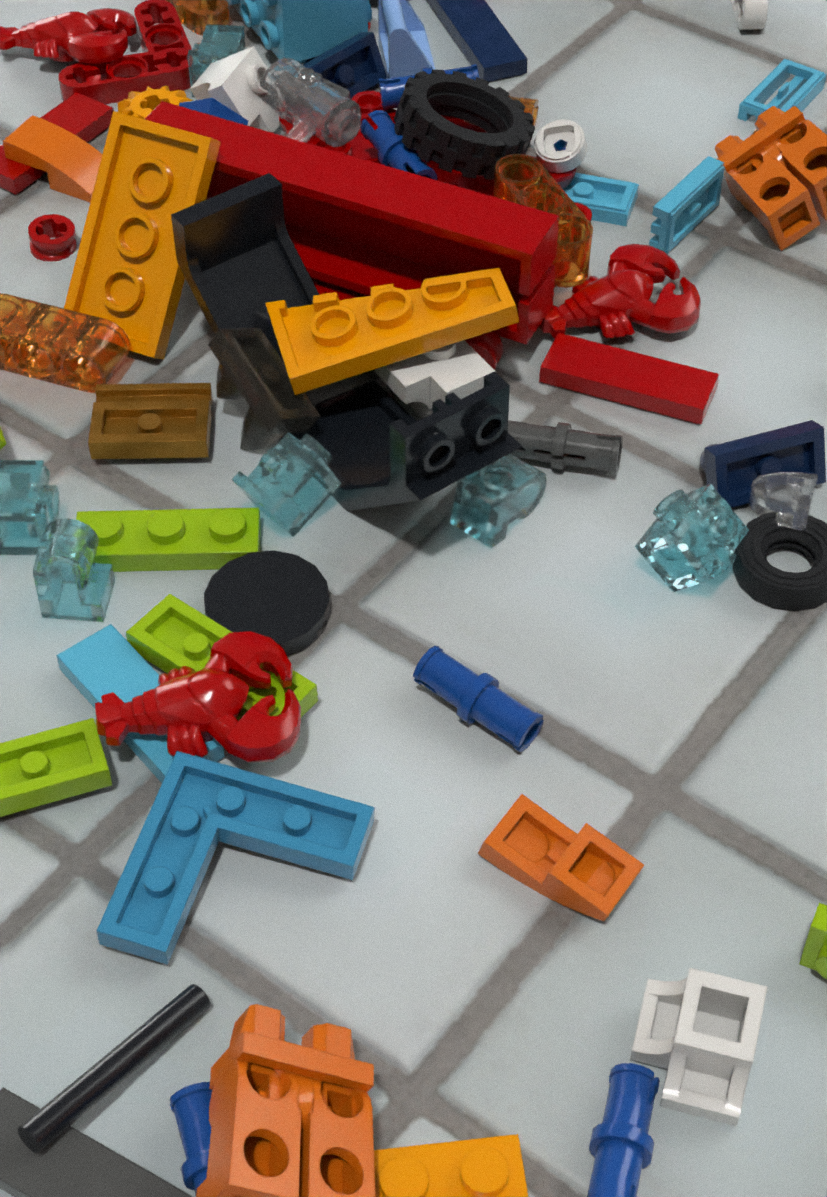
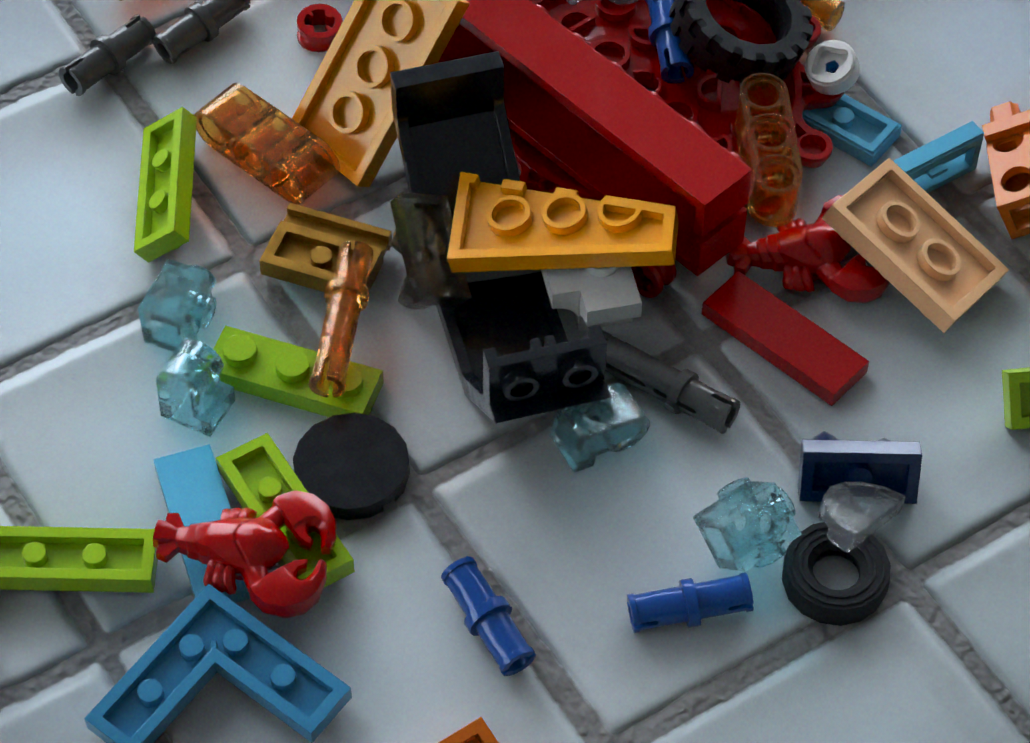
camera: 20 degrees right, 5 degrees up
(198, 449) = (345, 299): none -> clear orange pin
(290, 482) = (415, 356): clear light blue brick -> none
(669, 626) = (690, 602): none -> blue pin
(713, 265) = (915, 244): none -> light nougat plate

